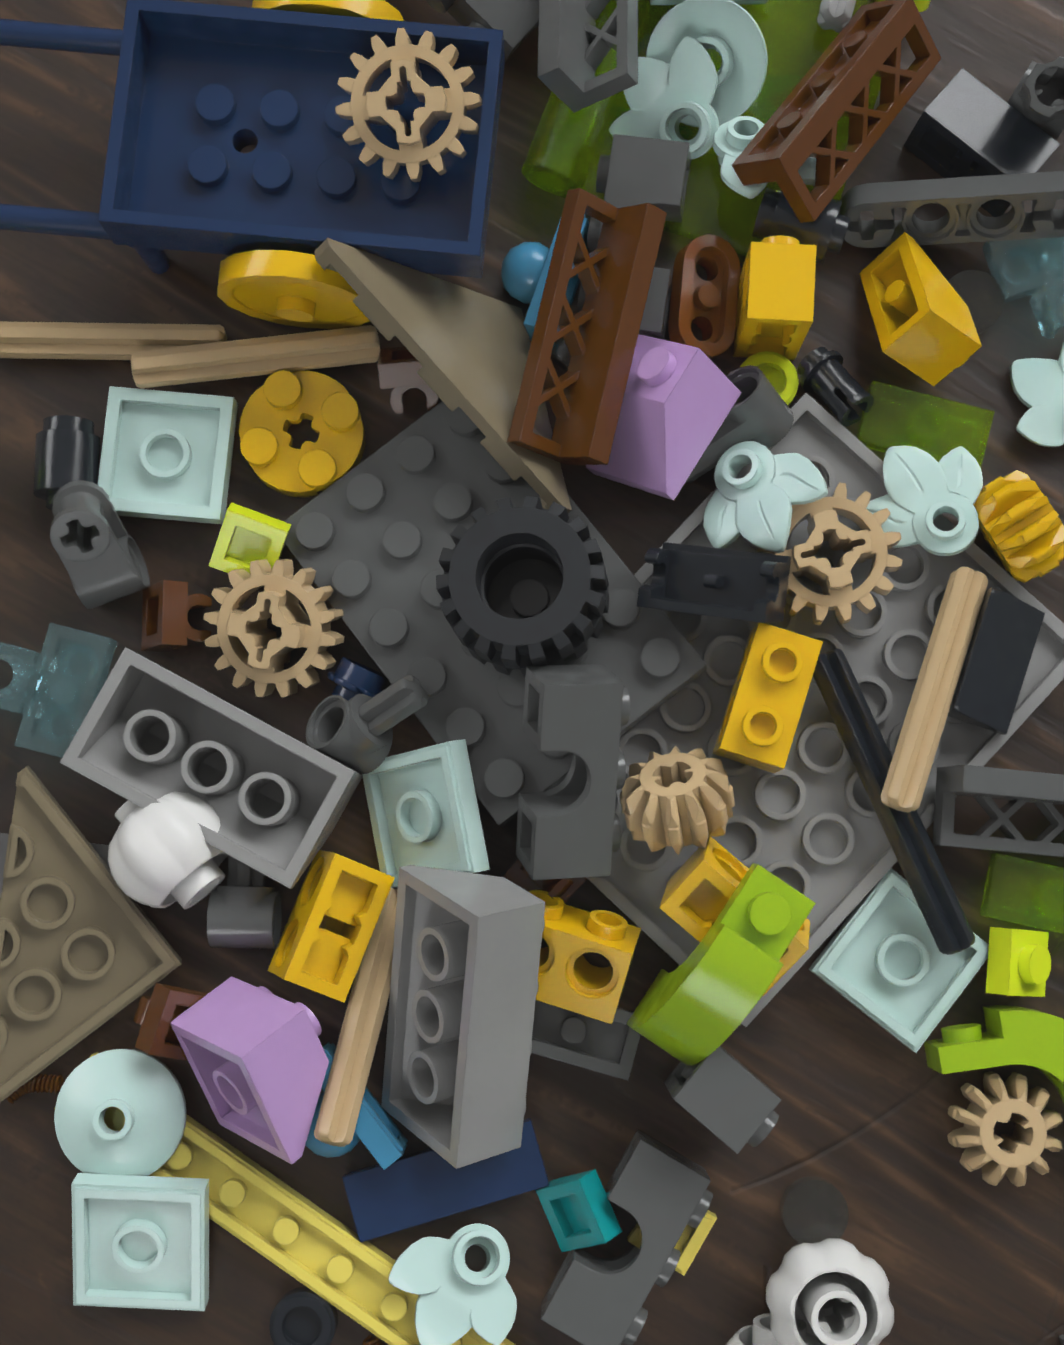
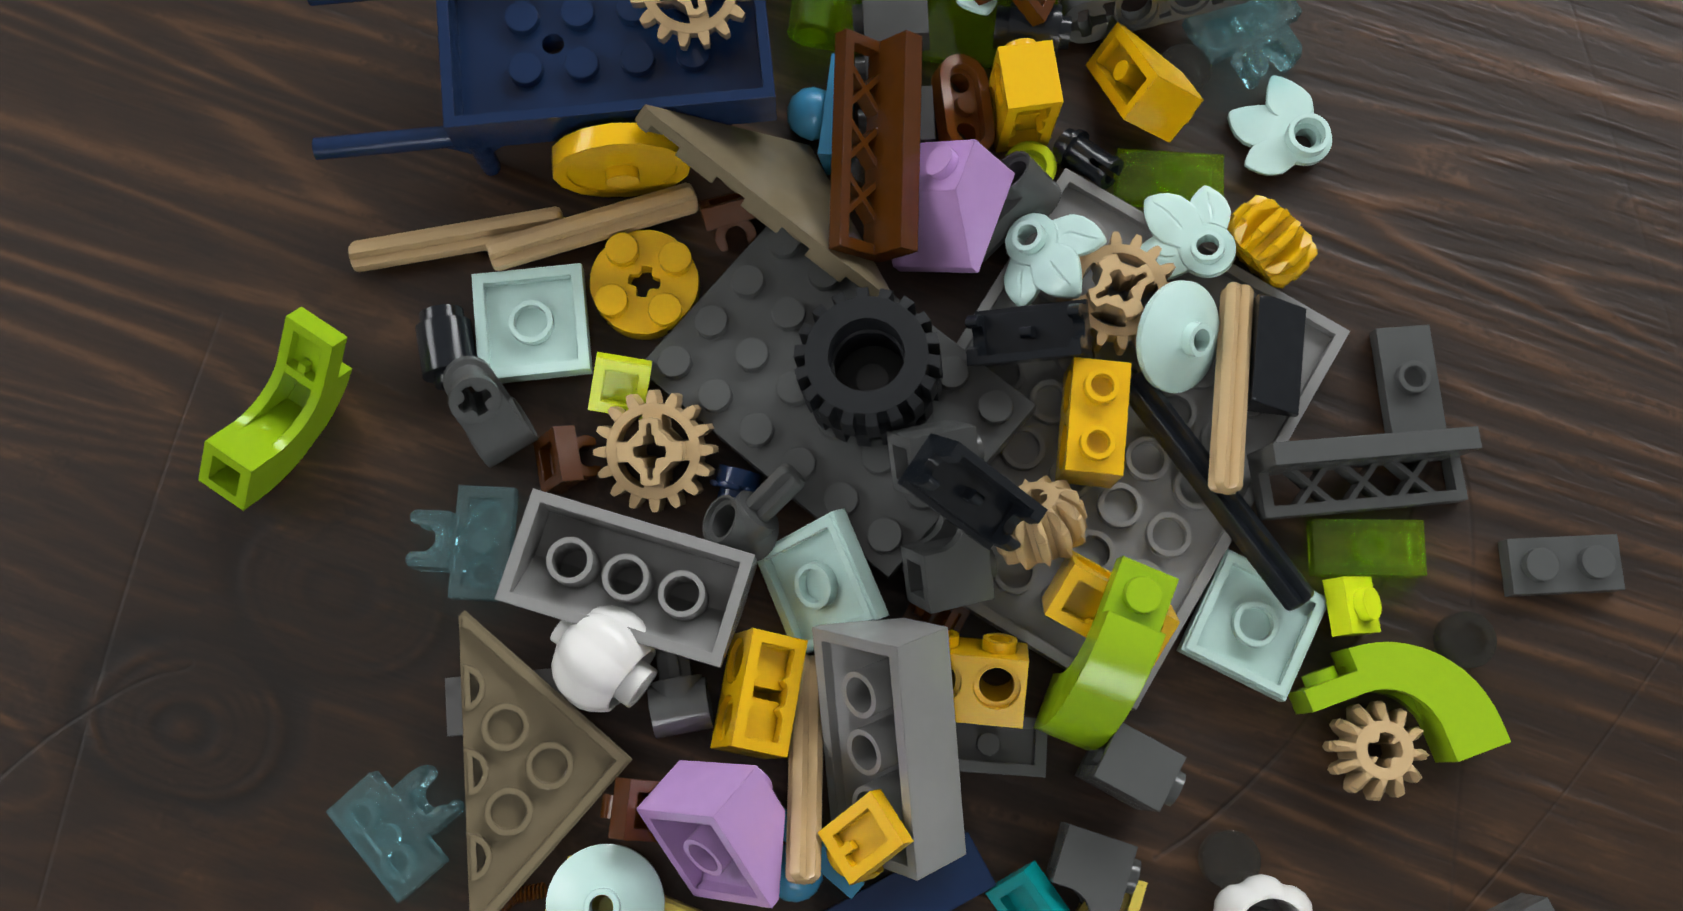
camera: 20 degrees left, 5 degrees down
(407, 1111) = (864, 838): none -> yellow bracket
(598, 759) = (969, 493): none -> black hinge
(886, 618) = (1177, 336): none -> light aqua dish

